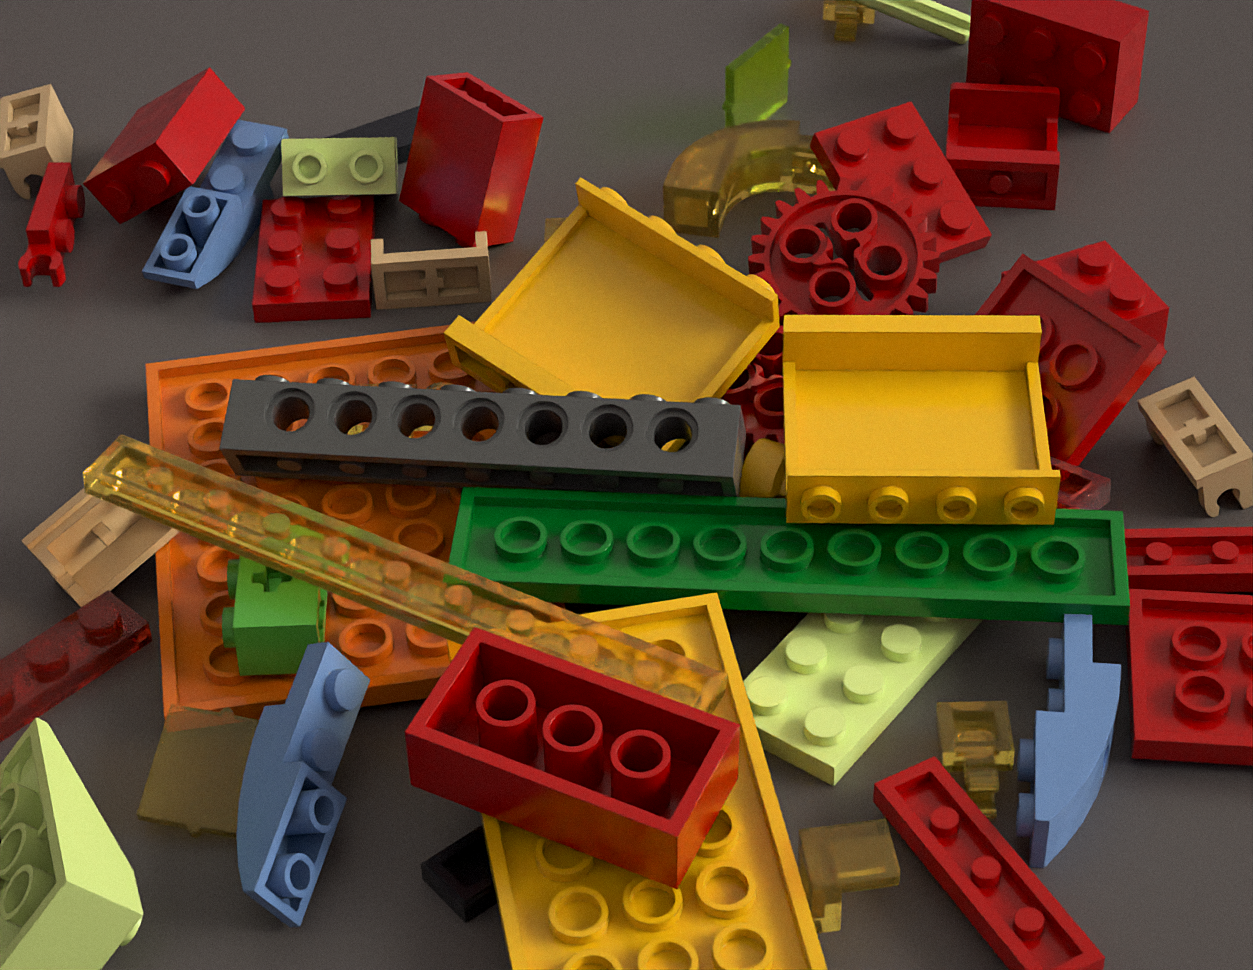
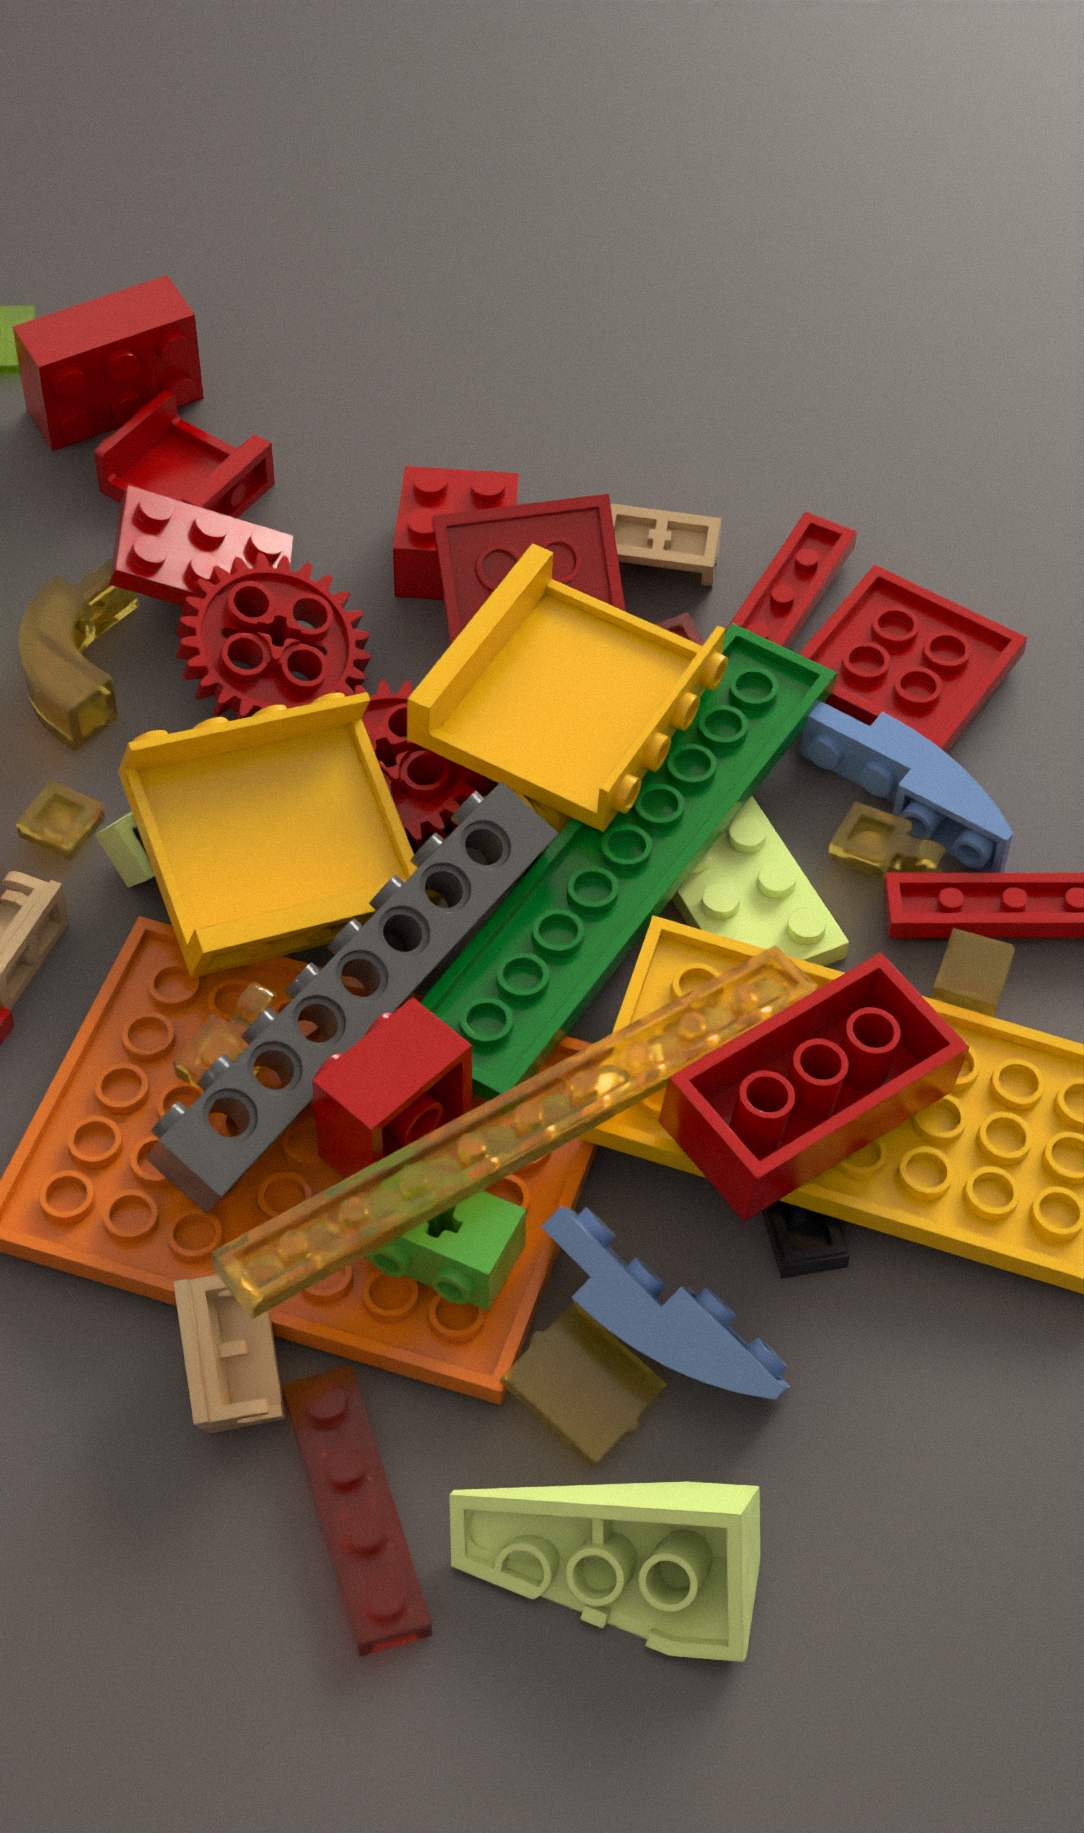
camera: 65 degrees left, 10 degrees up
(379, 482) = (390, 1088): none -> red brick

